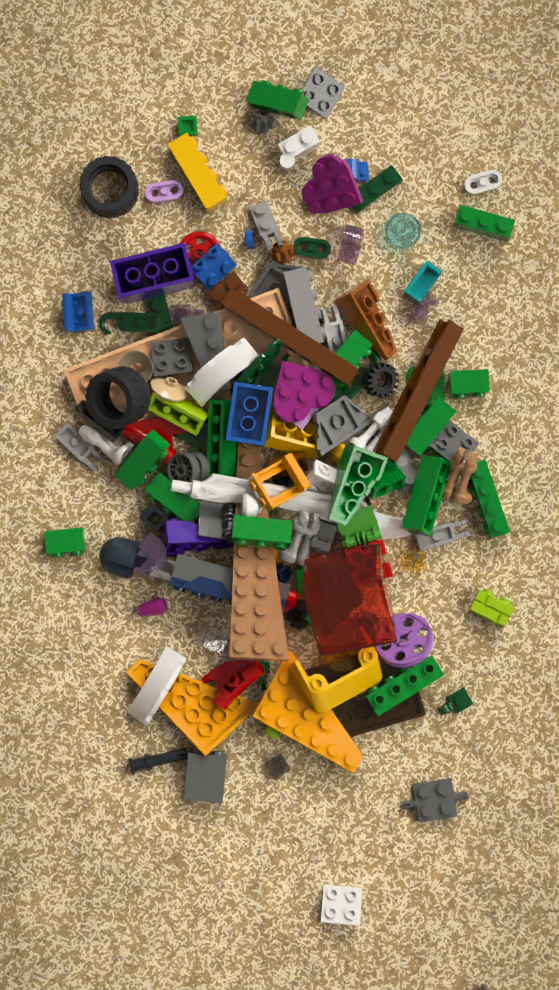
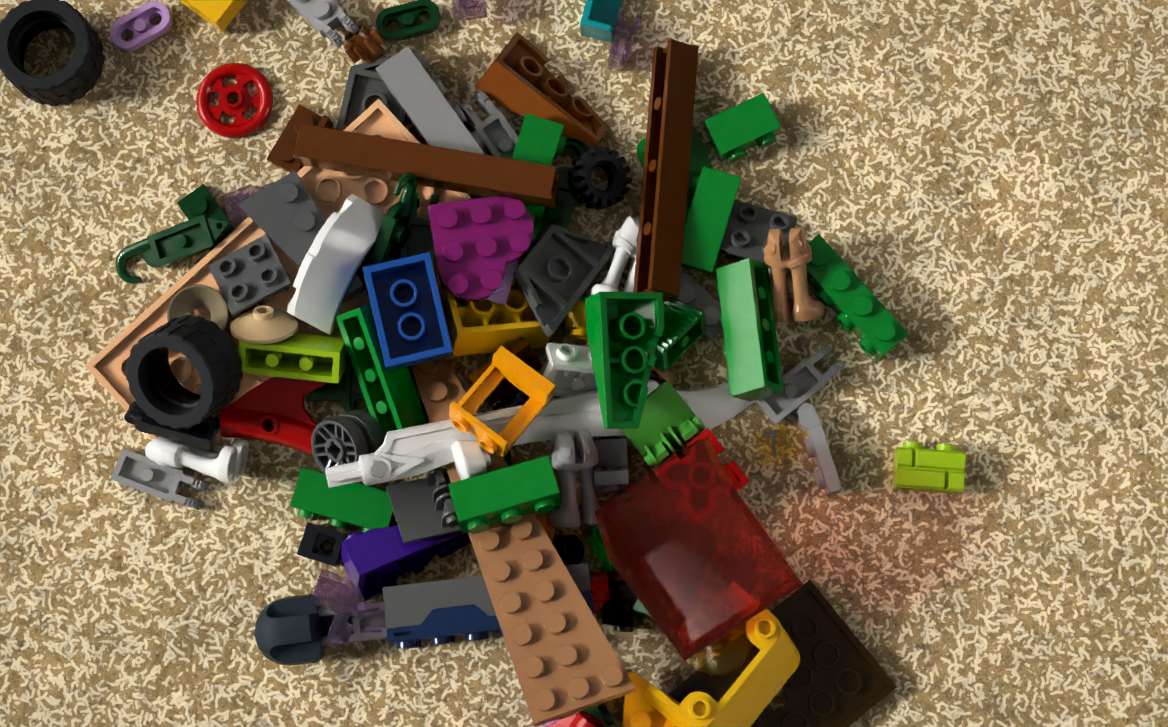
camera: 15 degrees left, 5 degrees down
(65, 541) = (193, 643): green brick -> none
(78, 312) = (74, 266): blue bracket -> none
(143, 460) = (268, 459): green brick -> none
(152, 273) = (167, 155): dark purple brick -> none
(153, 607) = (380, 692): magenta cone -> none
(211, 639) = (495, 707): clear bracket -> none
(213, 266) = (263, 110): blue bracket -> none
(249, 239) = (305, 45): blue tile -> none
(404, 685) = (842, 652): green brick -> none
(413, 641) = (827, 575): medium lavender wedge -> none
(437, 572) = (817, 446): none -> light grey hinge
(458, 701) = (939, 644): dark green plate -> none

